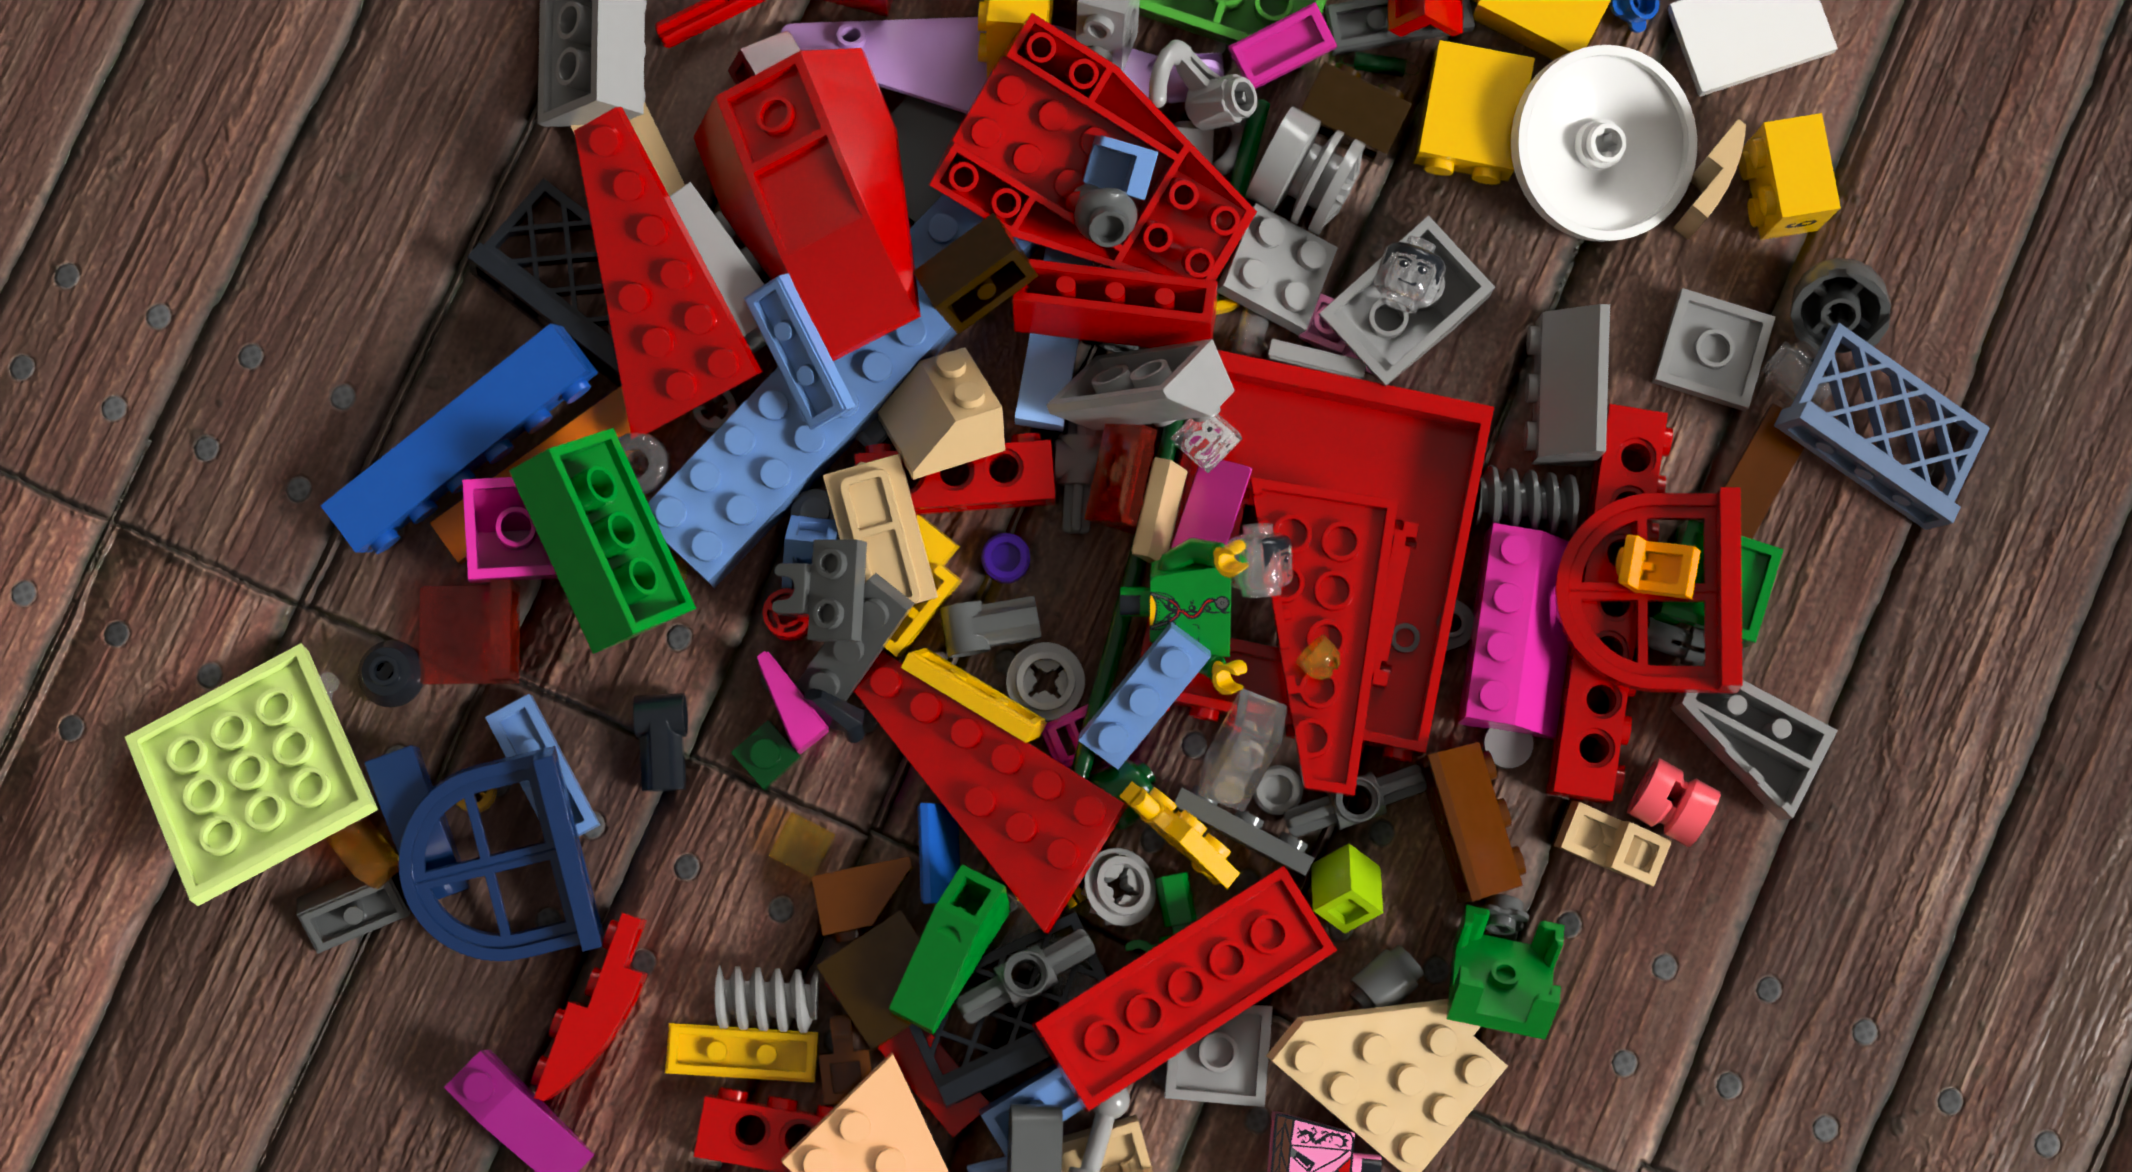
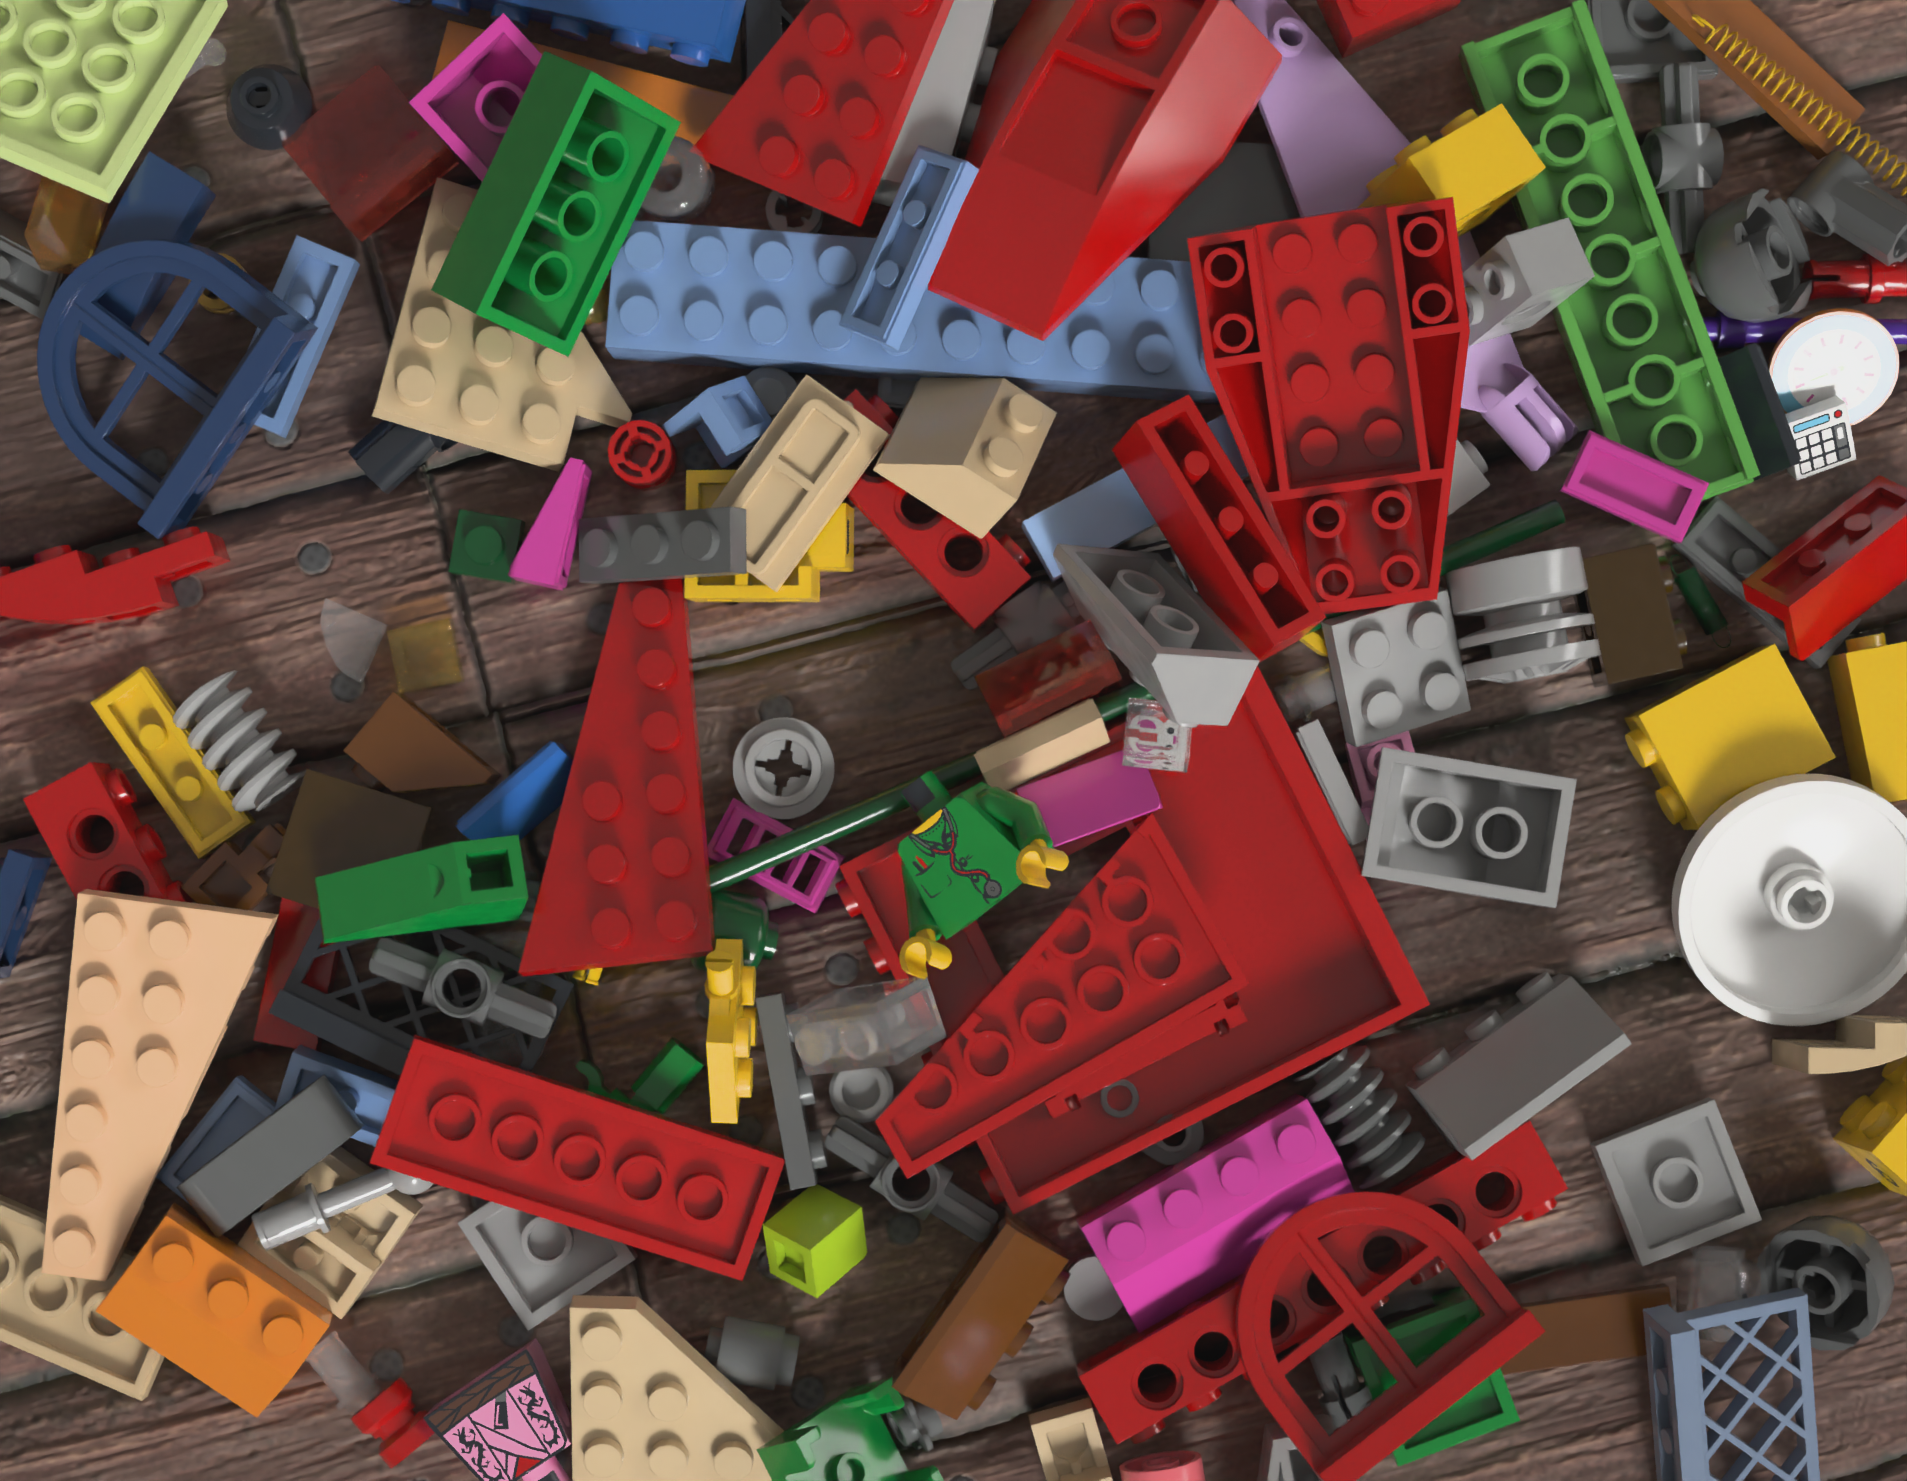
camera: 55 degrees right, 5 degrees up
(657, 676) = (478, 379): none -> tan wing
(754, 882) = (350, 638): none -> clear tile
(828, 590) = (687, 475): dark grey plate -> none
(837, 714) = (580, 585): black bar -> none
(974, 694) = (709, 707): yellow tile -> none
(975, 273) = (1132, 361): dark brown brick -> none
(977, 627) = (783, 656): dark grey piece -> none
(1005, 558) = (878, 627): dark purple tile -> none
(1102, 214) = (1302, 442): dark grey animal -> none
(1120, 166) = (1367, 421): medium blue panel -> none
(1135, 880) = (656, 1017): light grey gear -> none
(1144, 695) = (839, 883): medium blue plate -> none
(1210, 100) = (1519, 456): light grey piece -> none
(1268, 561) = (1076, 896): clear head -> none
(1319, 658) = (1016, 1030): clear yellow hinge -> none
(1409, 275) = (1496, 810): clear head -> none
(1657, 567) = (1392, 1309): light orange bracket -> none

